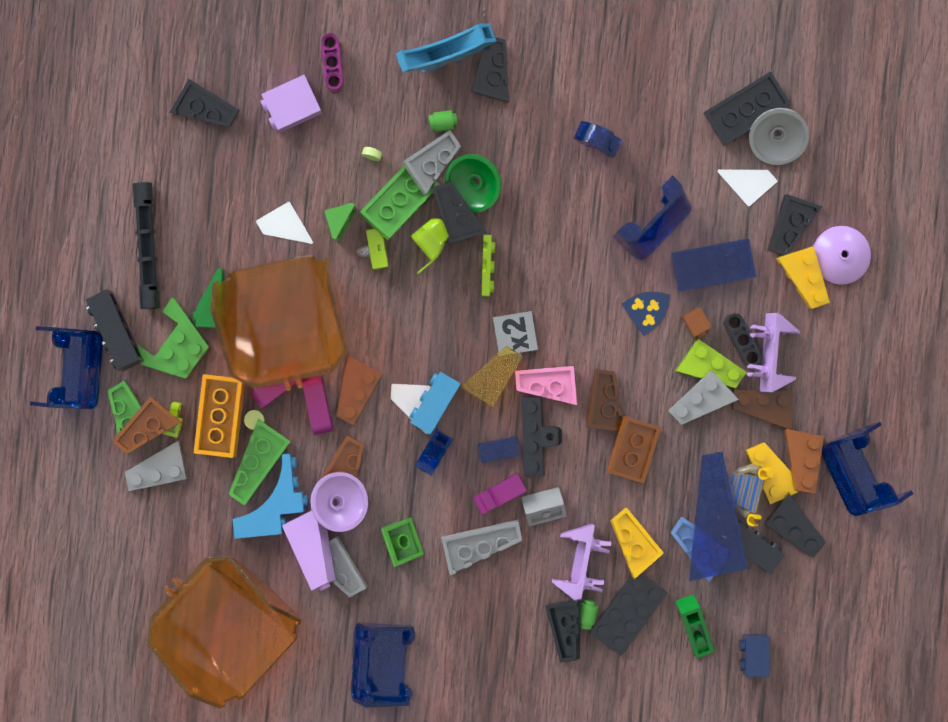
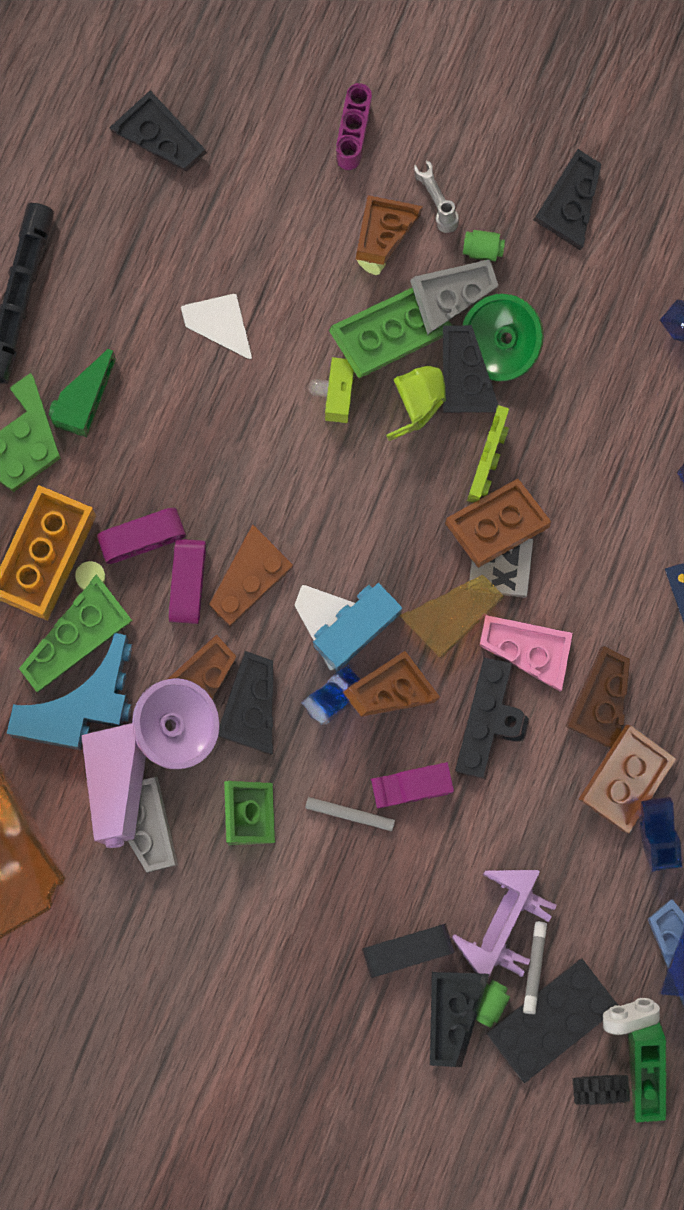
camera: 10 degrees right, 10 degrees down
(280, 322) = (171, 445): clear orange windscreen -> none
(290, 104) = (279, 163): lavender brick -> none
(339, 219) = (301, 331): bright green slope -> none
(373, 130) = (384, 228): none -> dark orange wing
(380, 664) = (161, 986): clear blue windscreen -> none
(382, 475) = (249, 705): none -> black wing
(413, 112) = (446, 217): none -> light grey brick
(451, 49) = (528, 151): dark azure arch -> none
(465, 522) = (350, 814): none -> light grey bar
(468, 436) = (391, 688): none -> dark orange wing
(477, 544) = (353, 851): light grey wing -> none
(498, 449) = (429, 722): clear blue plate -> none
(505, 308) = (498, 522): none -> dark orange plate
(526, 597) = (408, 950): none -> black beam
(544, 506) = (471, 825): light grey panel -> none
(608, 584) = (535, 967): none -> light grey bar
(635, 542) = (592, 917): yellow wing -> none
(664, 479) = (658, 834): none -> clear blue brick
(669, 647) = (601, 1089): none -> black tyre
(676, 597) = (631, 1016): none -> white plate

